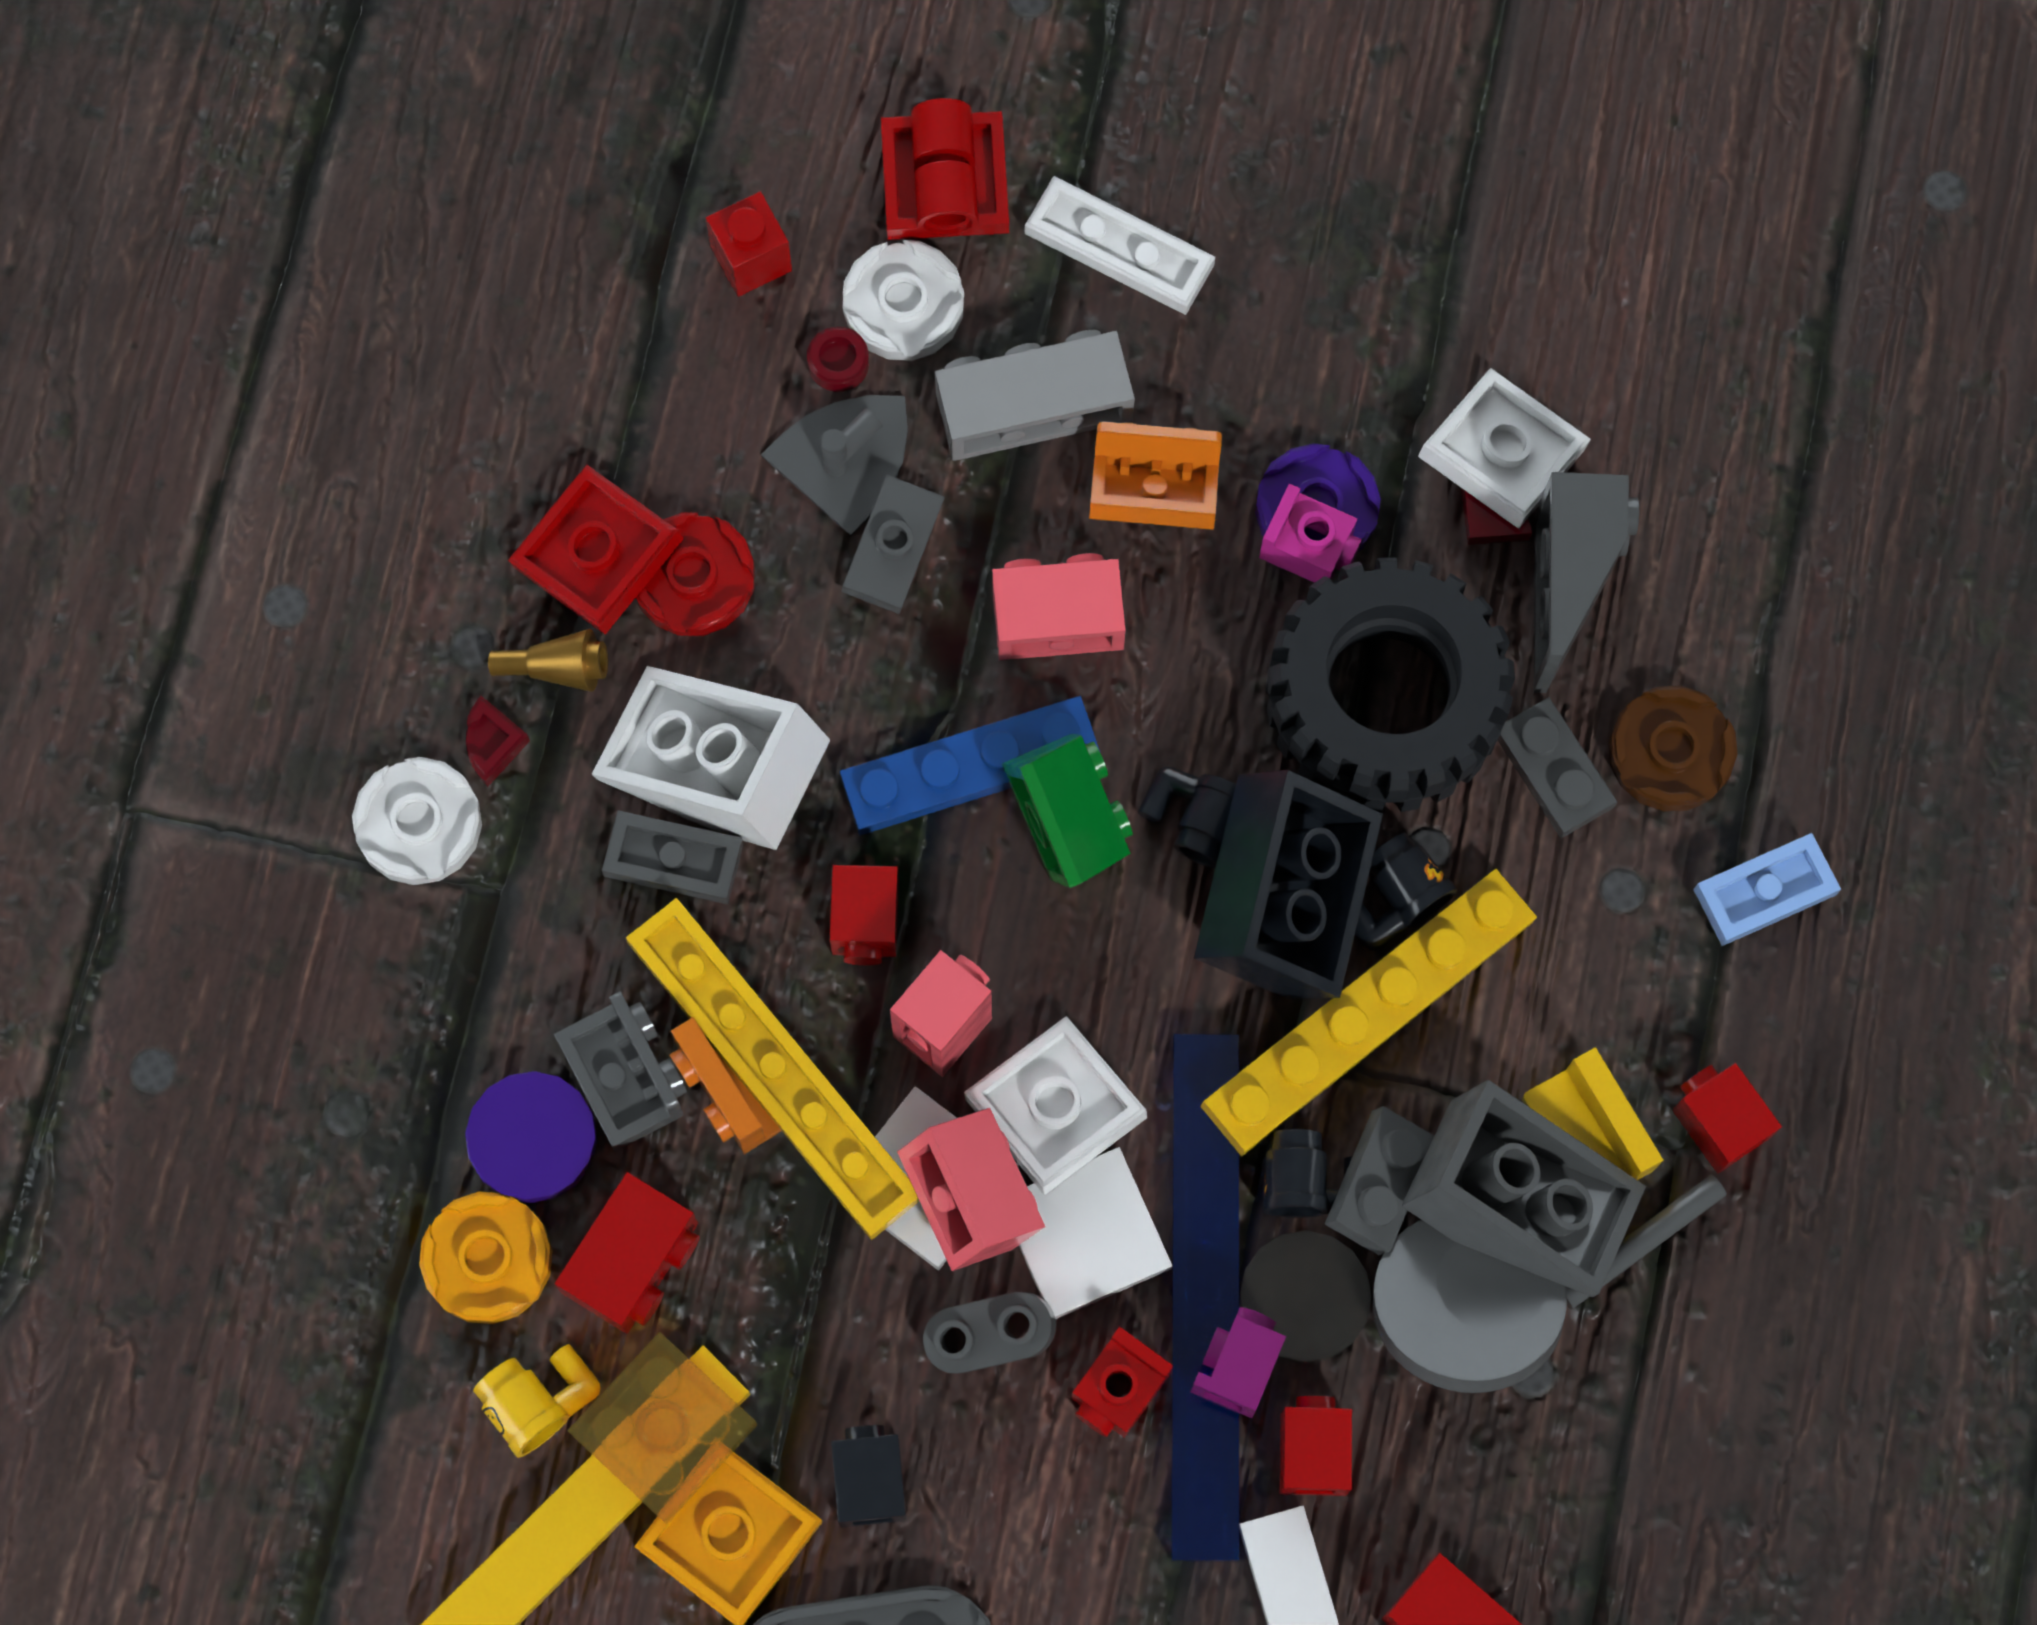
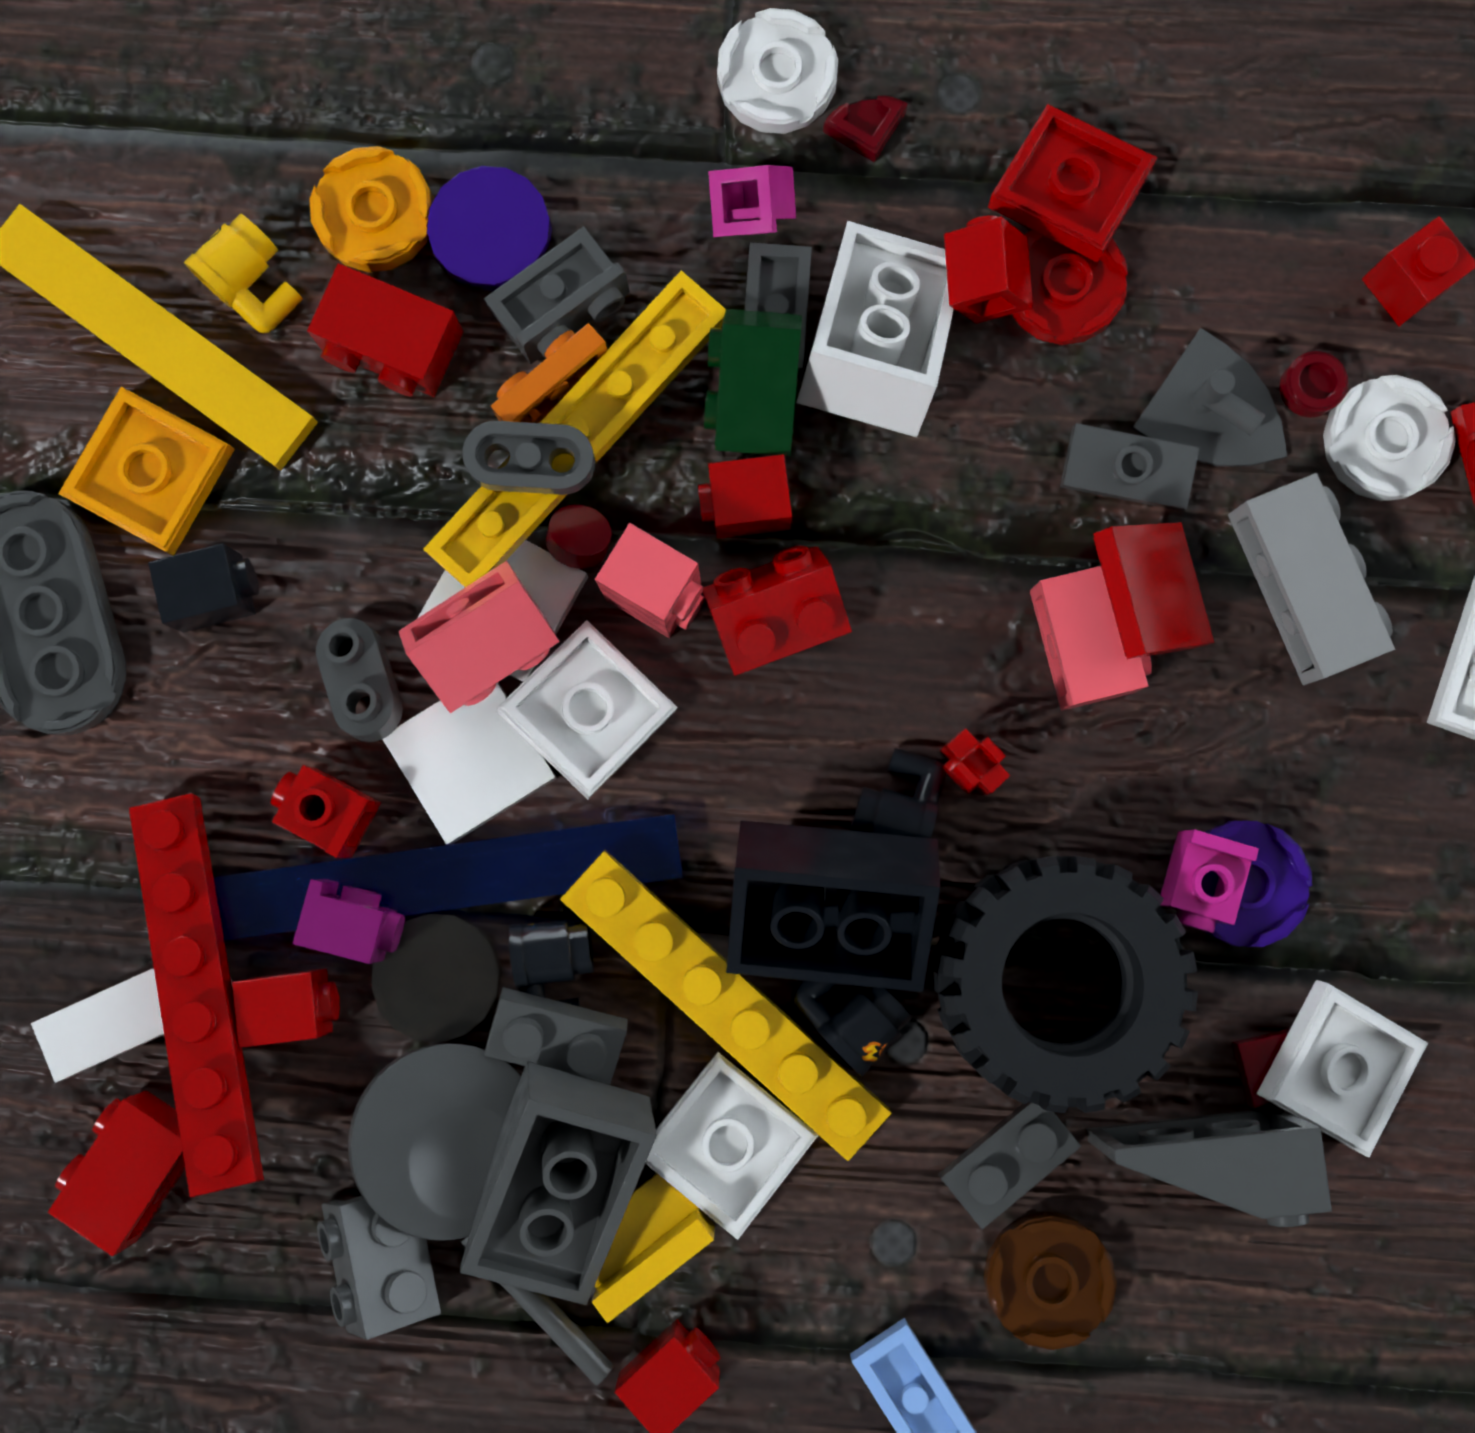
camera: 85 degrees right, 10 degrees up
(563, 858) = (751, 199): none -> dark pink brick
(568, 661) = (956, 180): pearl gold cone -> none
(662, 1427) = (225, 390): clear yellow plate -> none
(673, 642) = (988, 269): none -> red brick
(753, 881) = (756, 381): none -> dark green brick
(799, 1110) = (531, 457): none -> dark grey plate
(876, 1088) = (578, 536): none -> dark red tile
(955, 766) = (916, 578): blue plate -> none
(981, 900) = (776, 608): none -> red bracket
(1023, 539) = (1153, 588): none -> red tile
(1069, 809) = (875, 675): green slope -> none
(1155, 475) = (1246, 713): orange bracket -> none
(1167, 736) = (974, 763): none -> red plate
(1288, 1531) = (195, 996): none -> red plate
(1507, 1027) = (728, 1145): none -> white tile
(1586, 1395) = (378, 1270): none -> dark grey bracket

